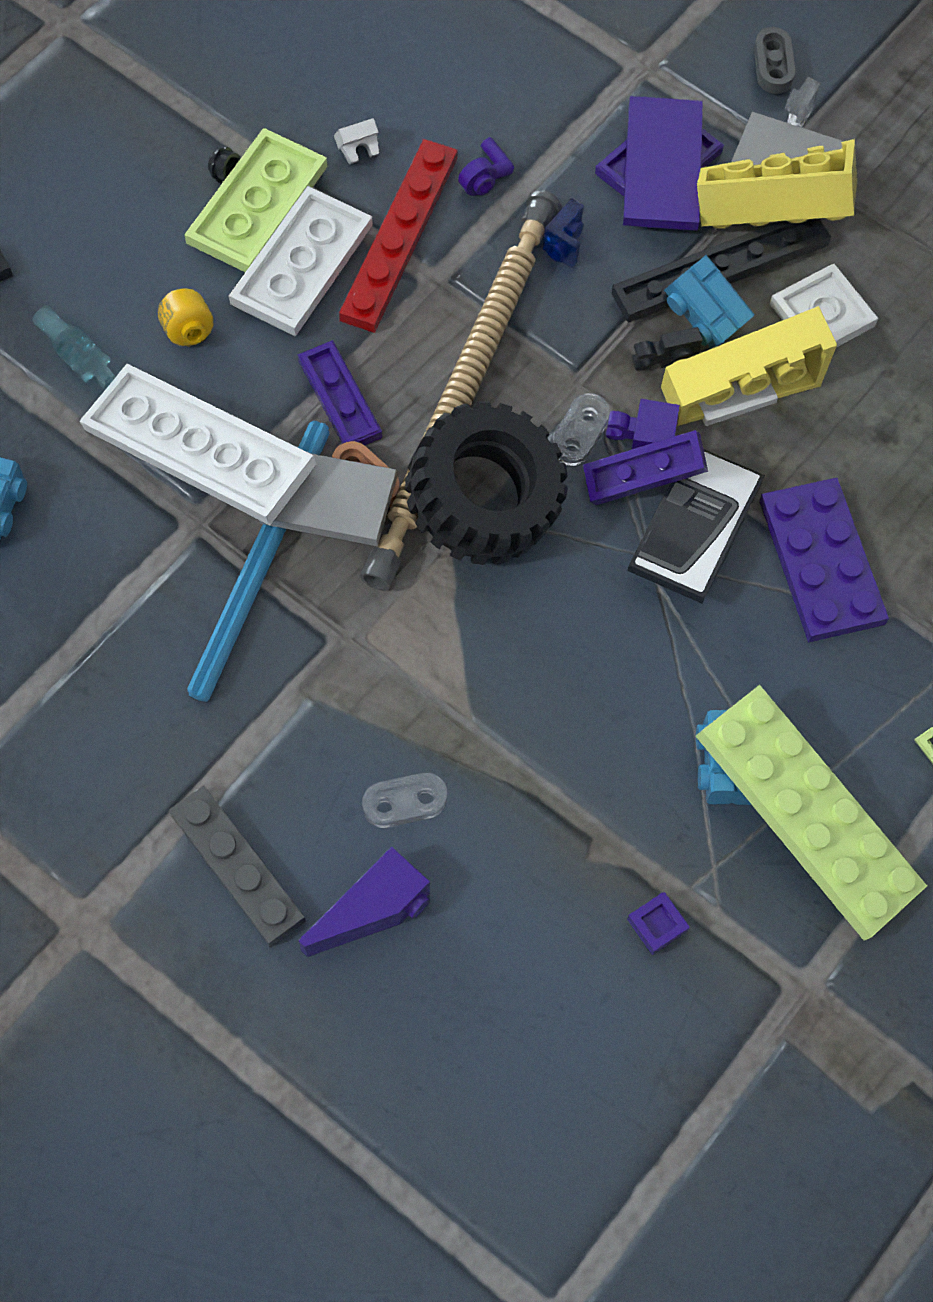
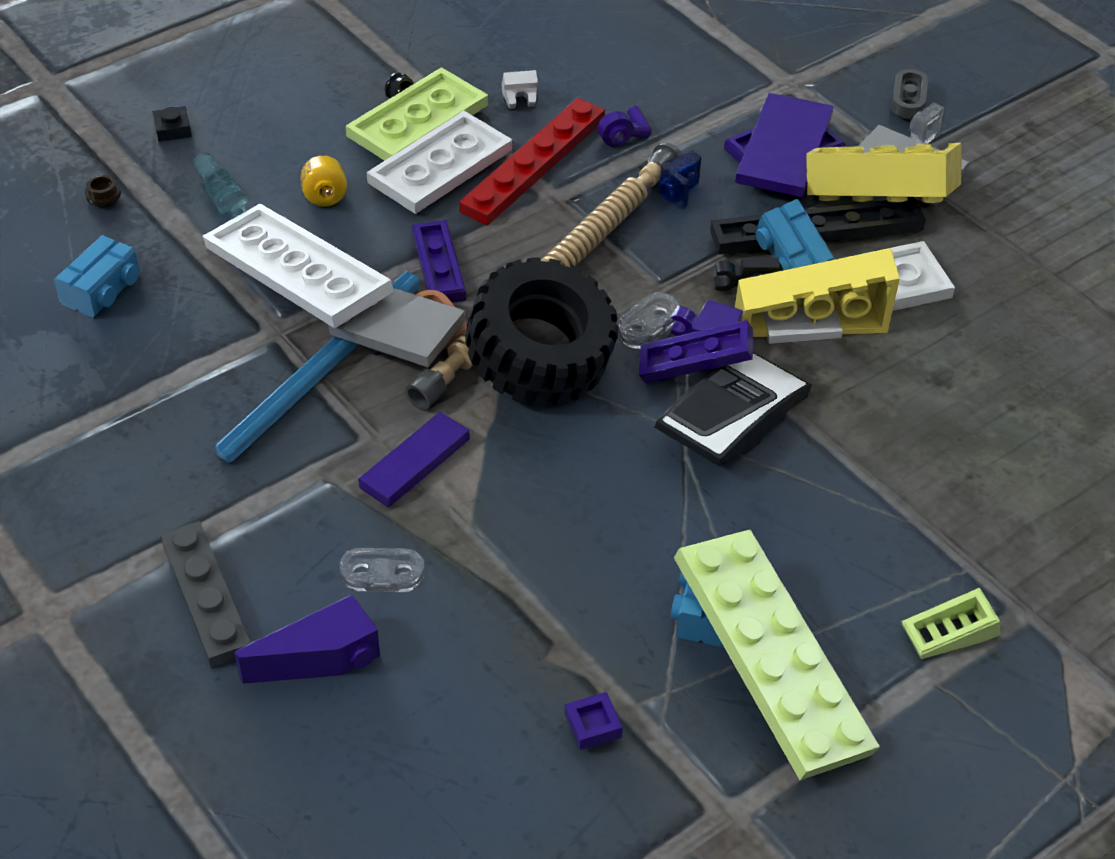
camera: 15 degrees right, 20 degrees down
(393, 656) = (414, 459): none -> dark purple tile
(823, 560) = (851, 463): dark purple plate -> none

